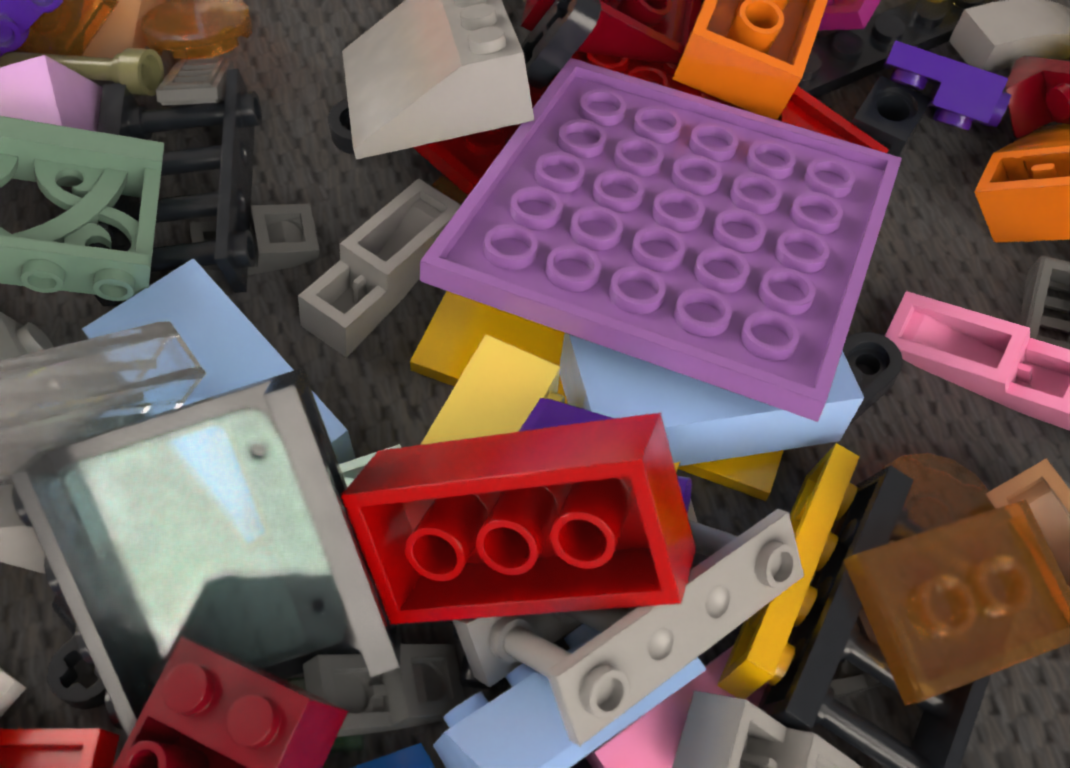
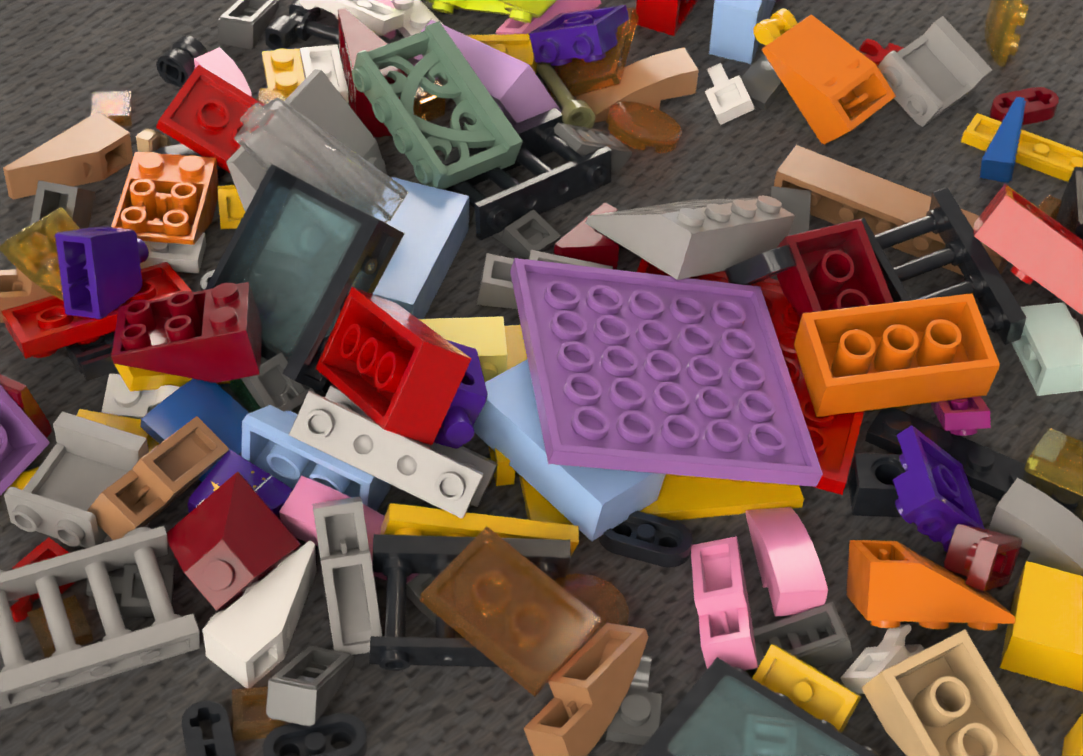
camera: 60 degrees right, 15 degrees down
(357, 185) = (588, 243): none -> dark red slope
(960, 263) = (786, 560): none -> bright pink slope

